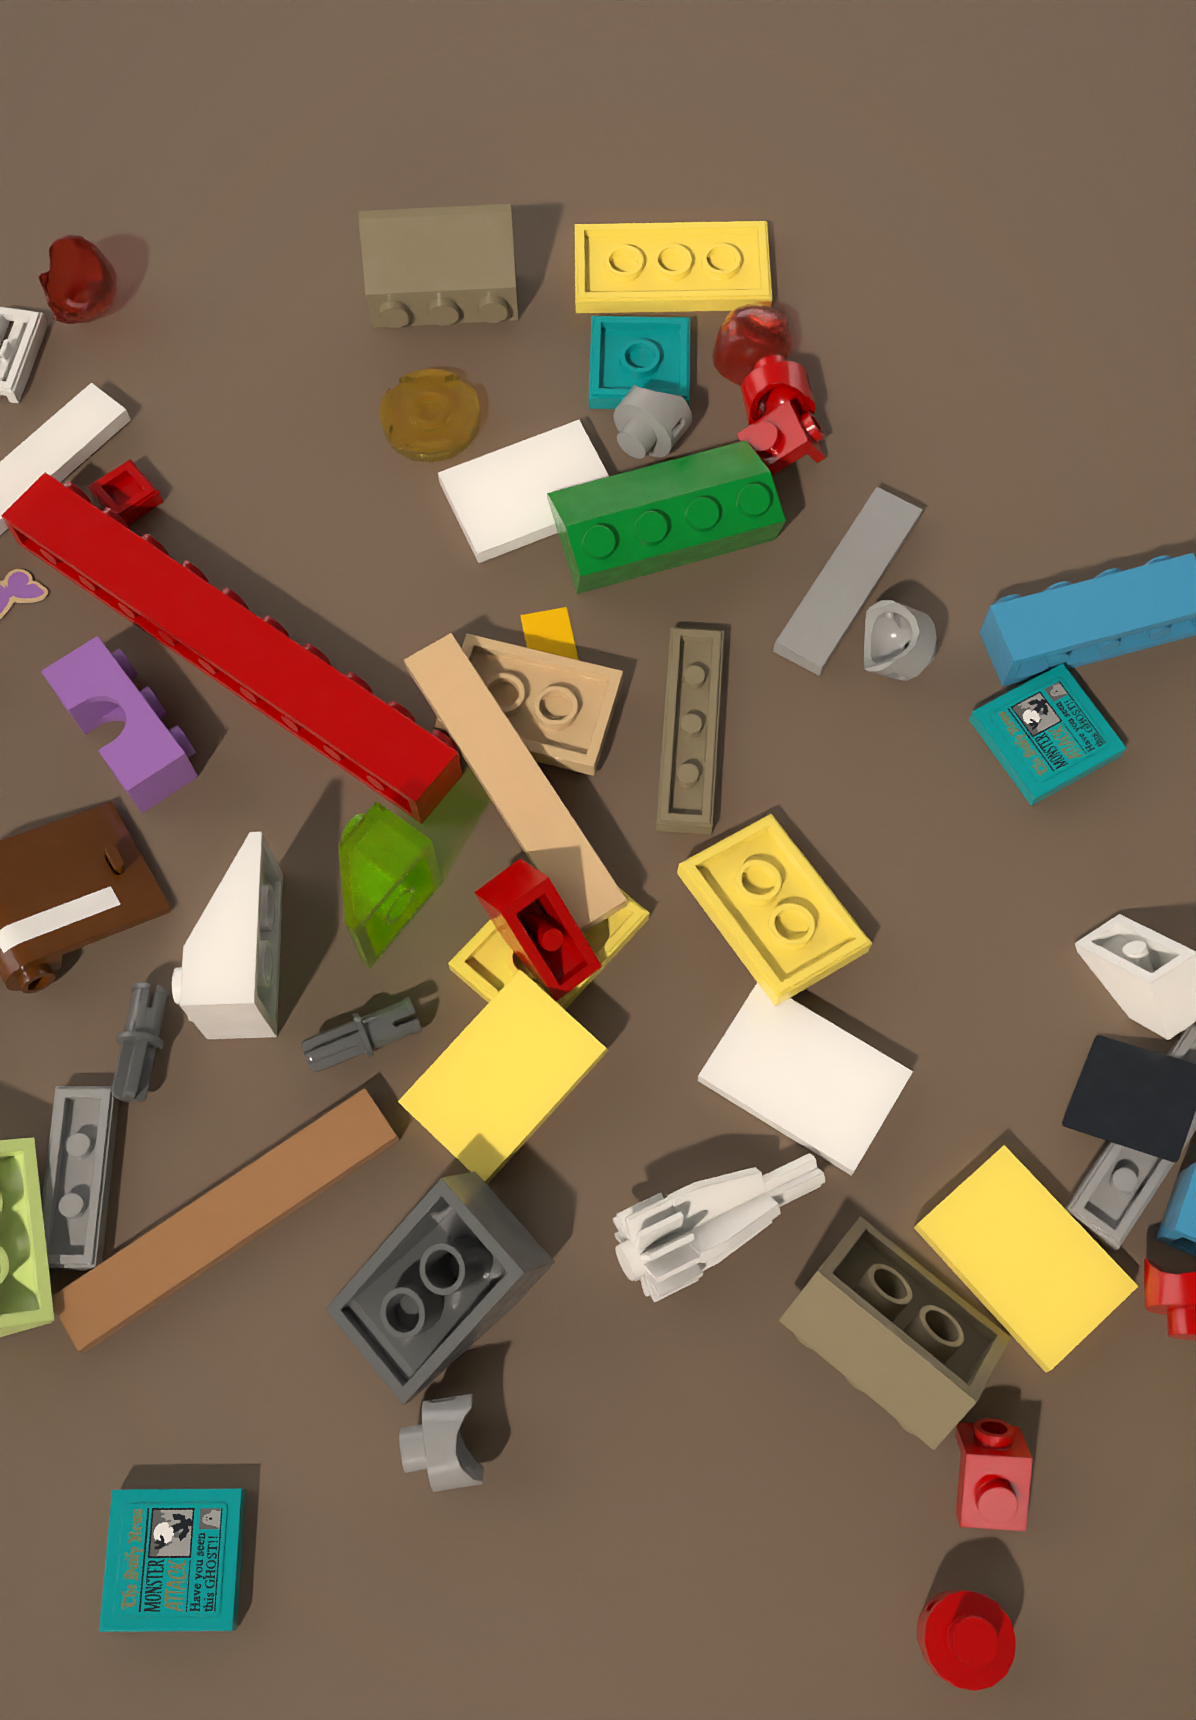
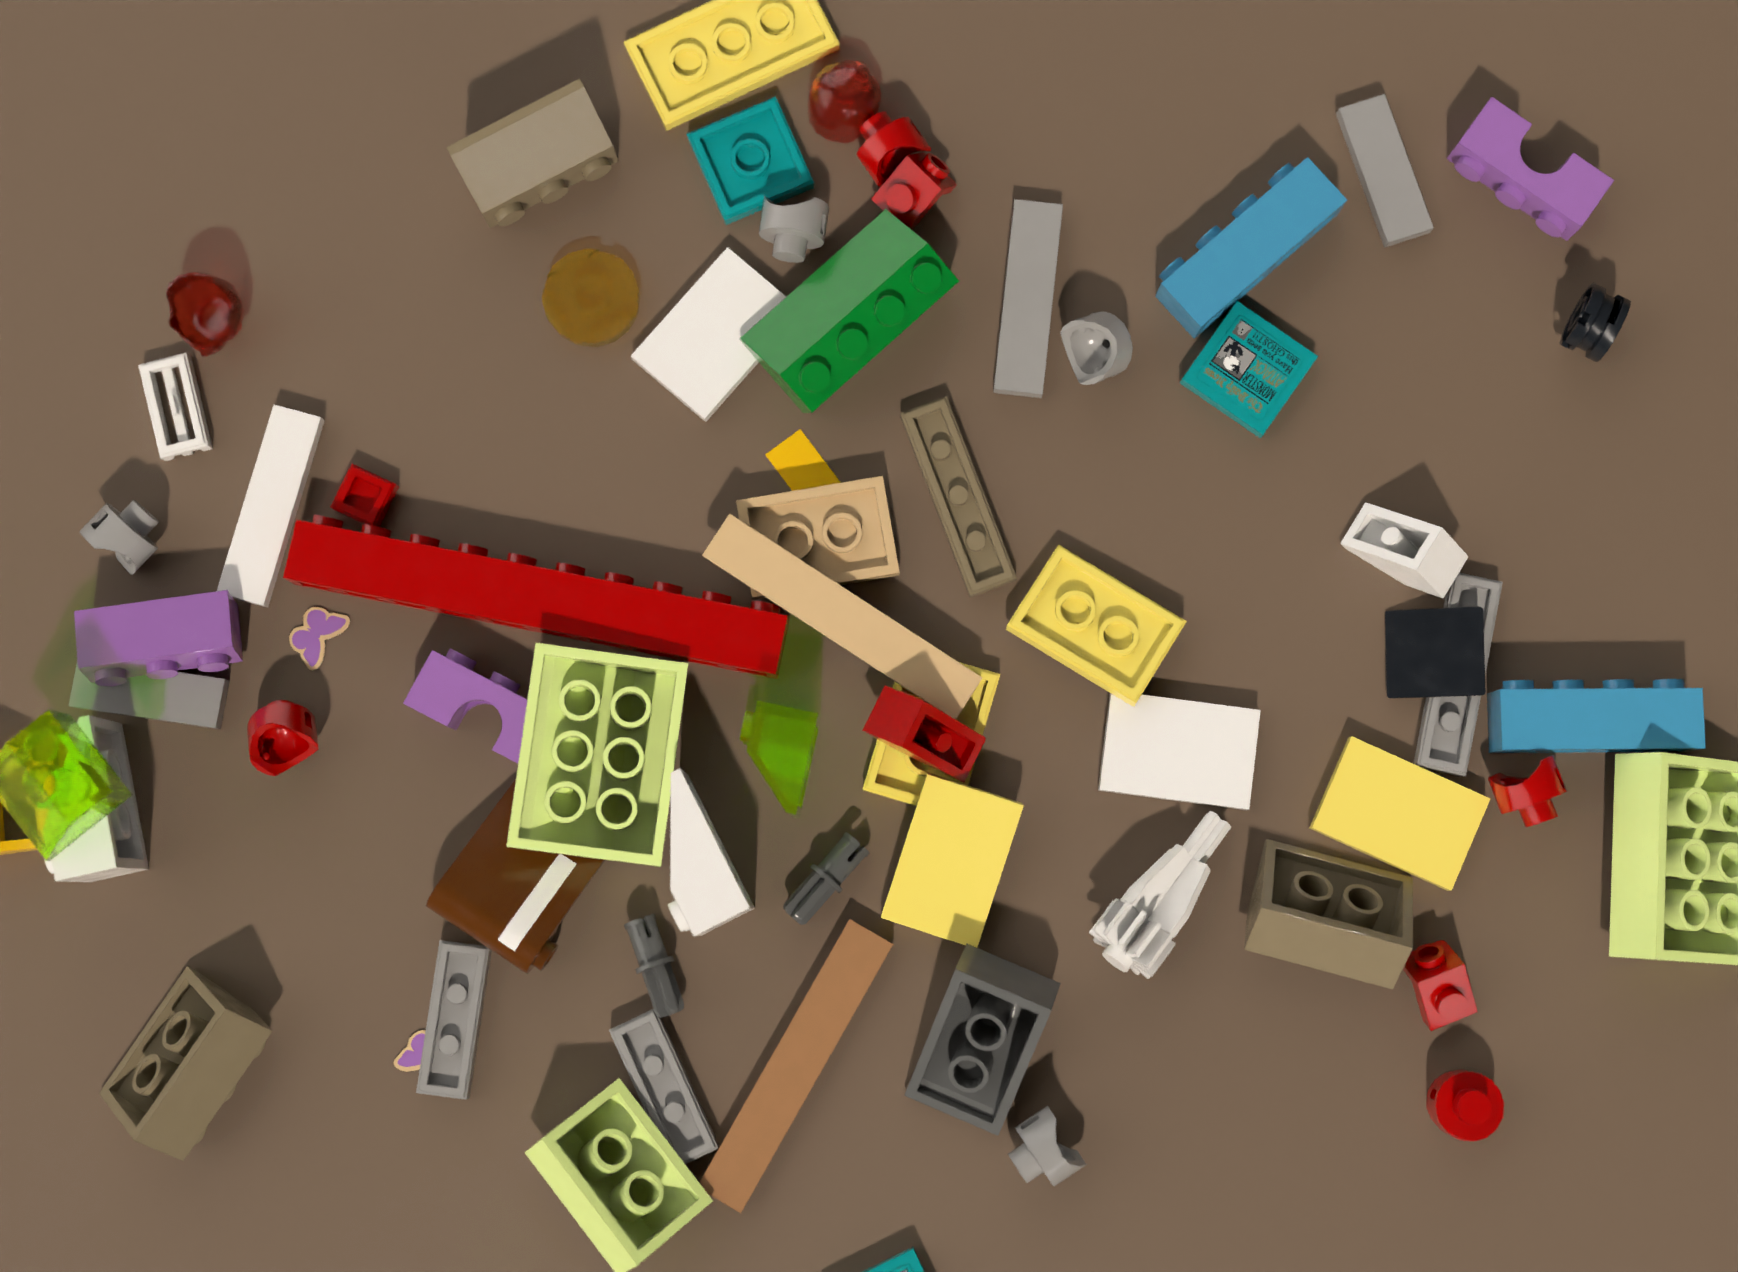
camera: 25 degrees left, 15 degrees up
(190, 792) = (597, 755): none -> yellowish green slope

